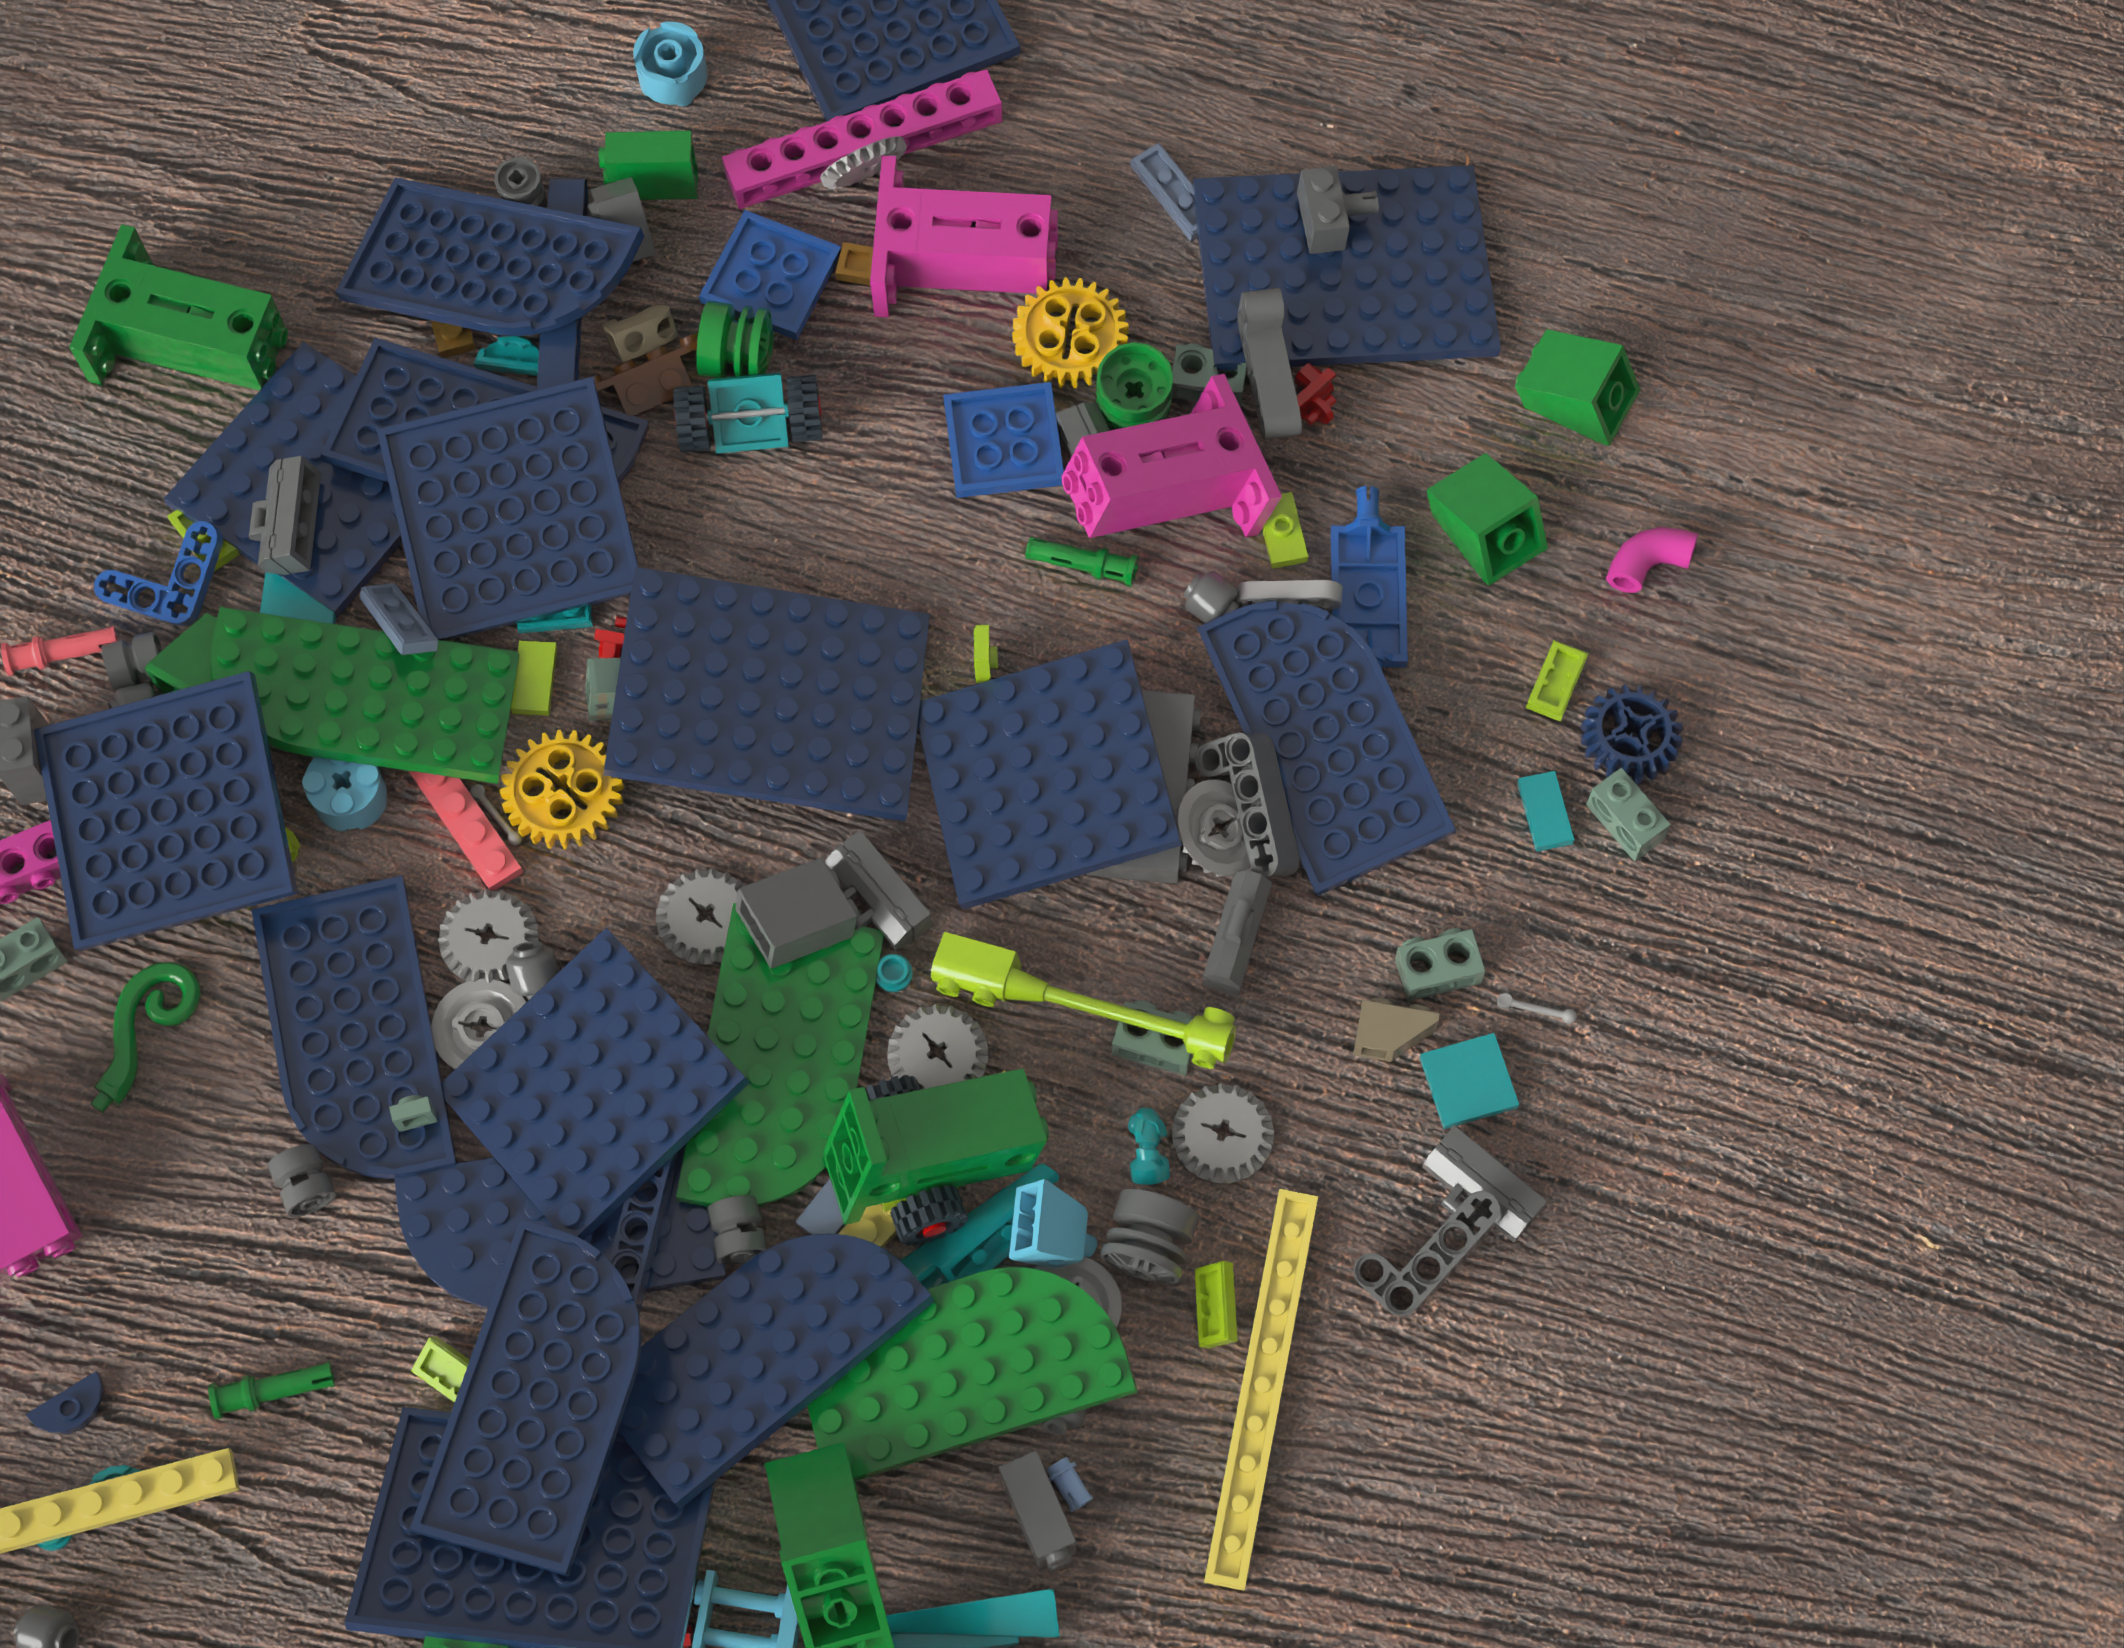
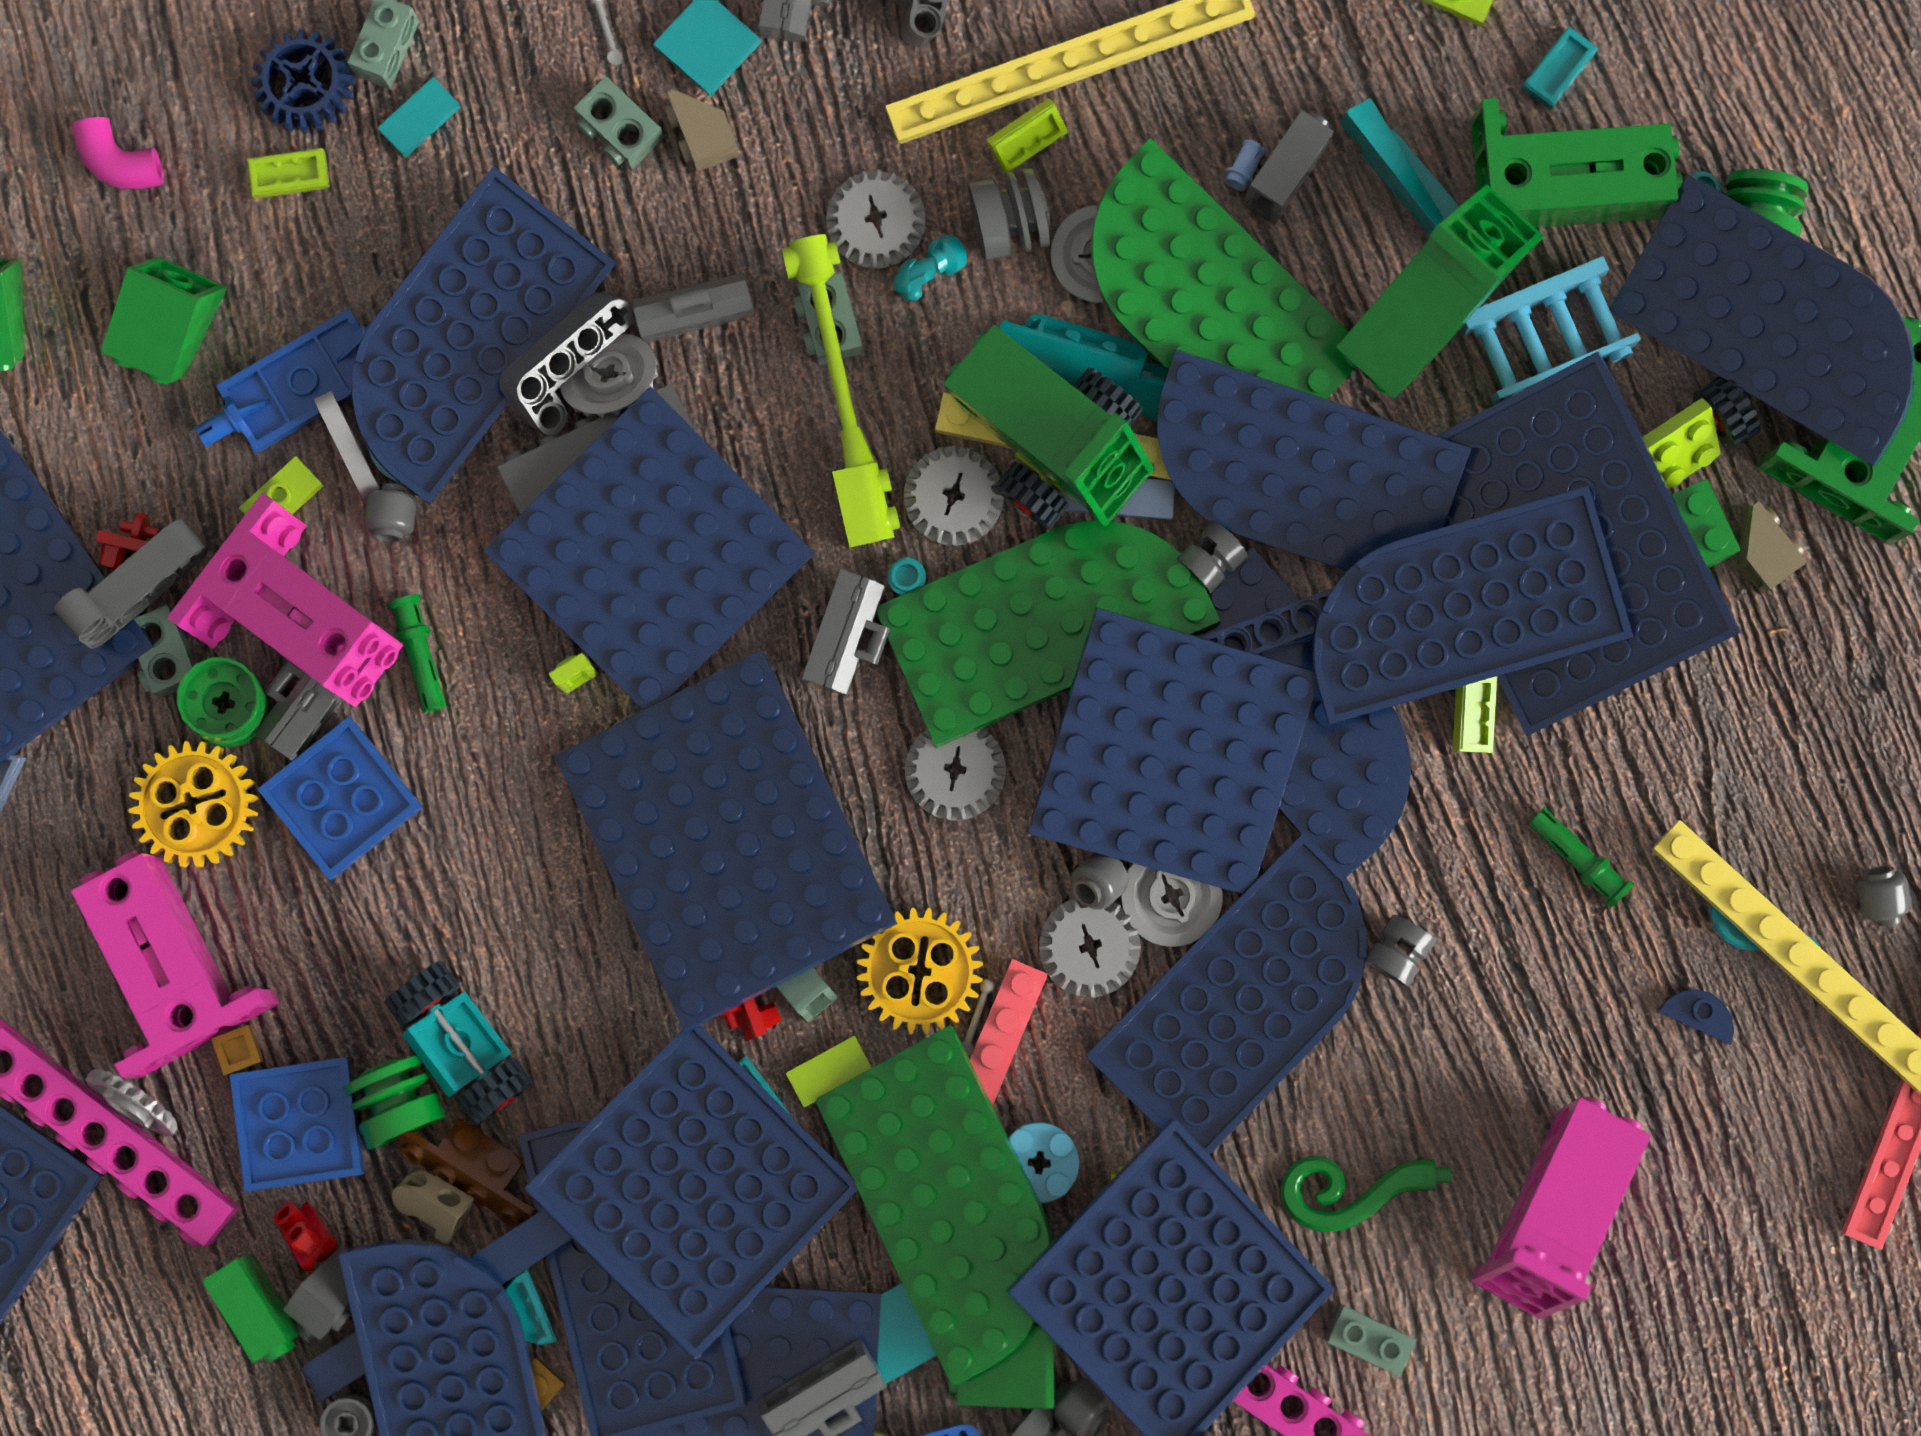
camera: 125 degrees left, 15 degrees up
(398, 619) = (856, 1223): sand blue tile -> none
(413, 1112) = (1288, 891): sand green plate -> none
(670, 63) = (125, 1391): medium azure brick -> none
(679, 233) = (305, 1234): none -> red hips
(796, 912) = (913, 677): dark grey brick -> none
(1049, 1227) = (1055, 297): medium azure torso -> none

